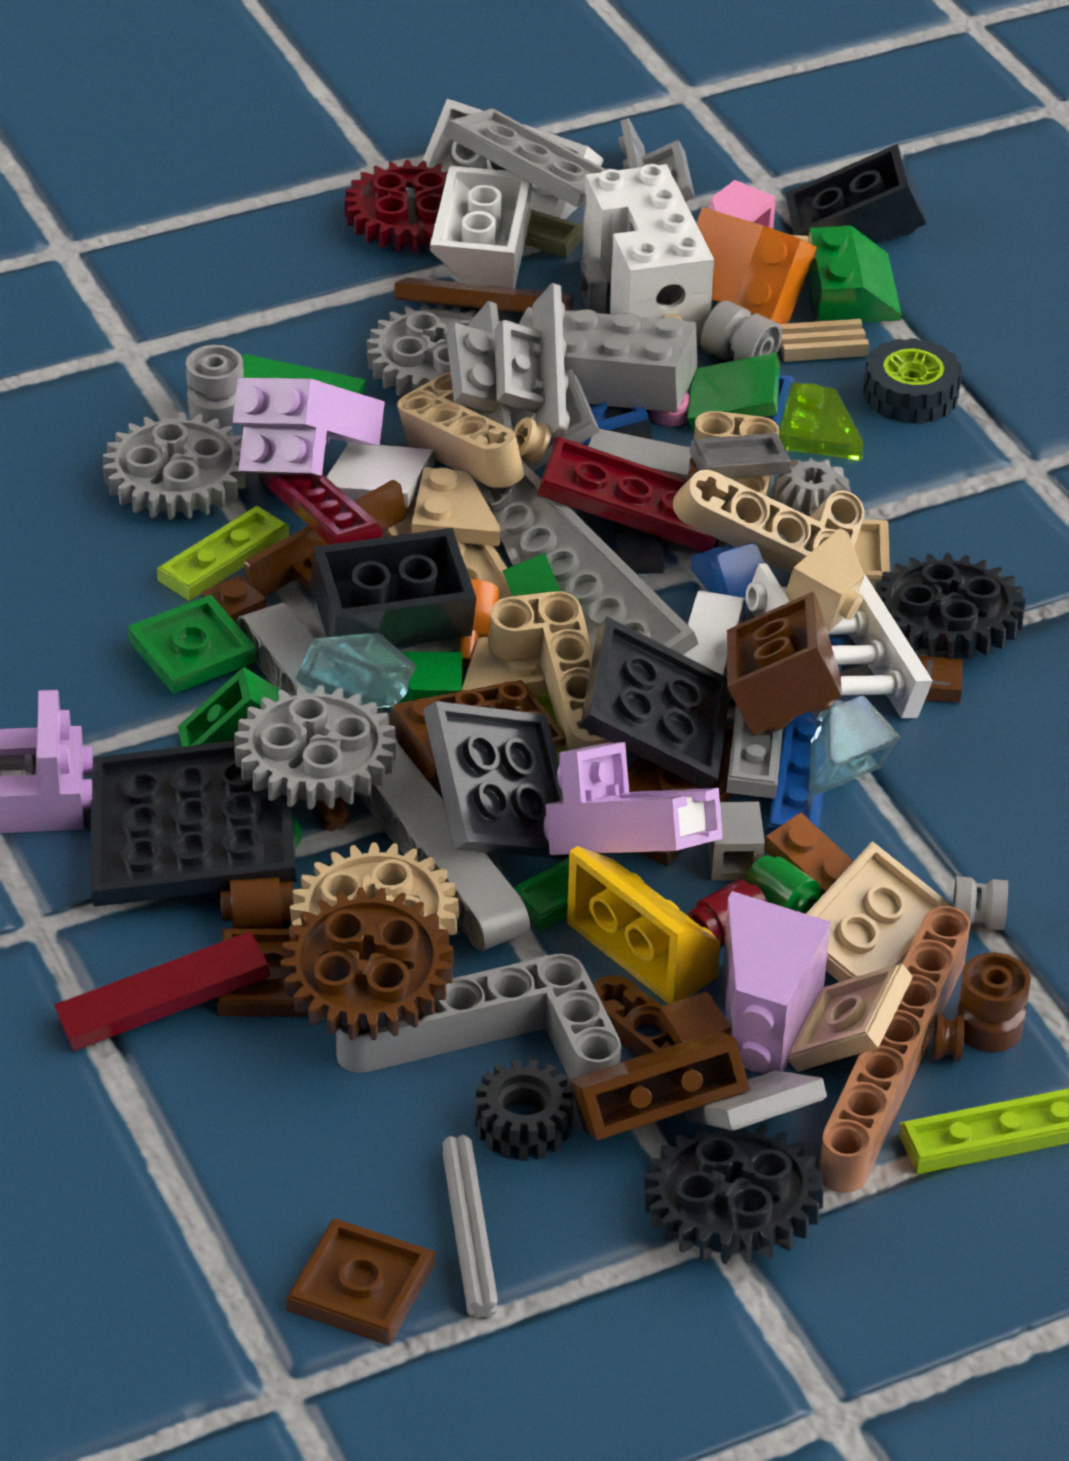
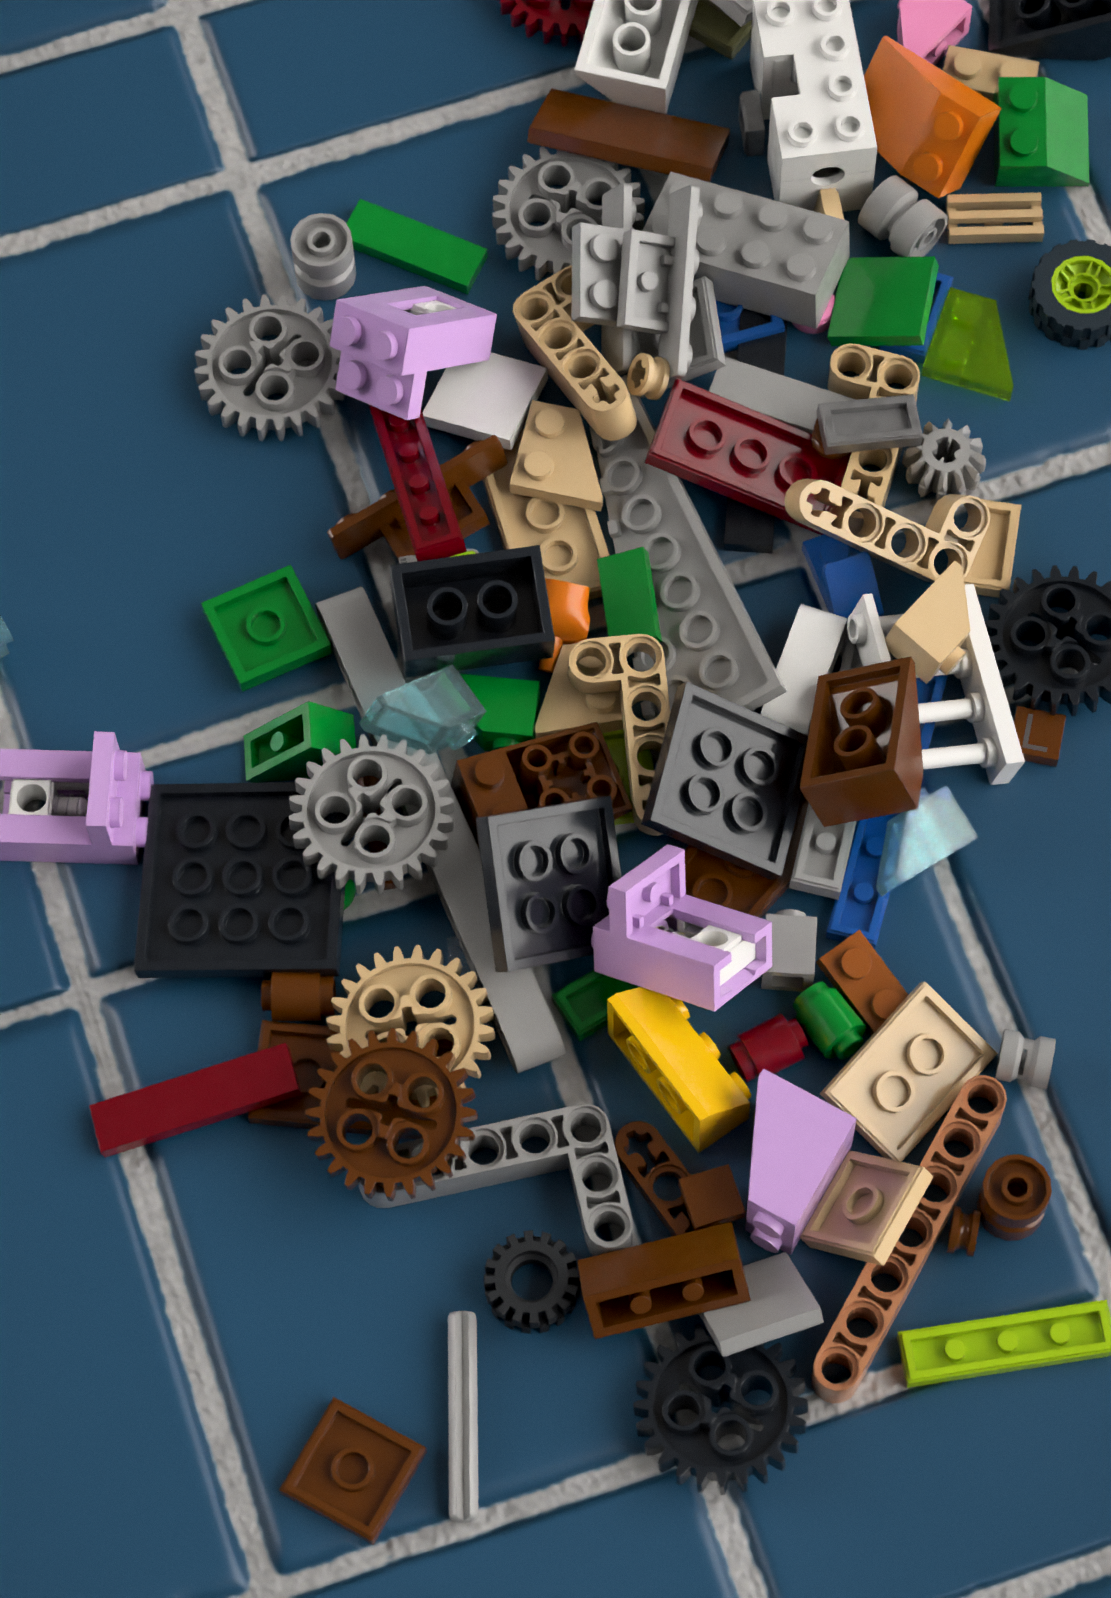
camera: 10 degrees right, 25 degrees up
(221, 553) = (312, 492): lime tile -> none
(236, 597) = (317, 565): reddish brown plate -> none

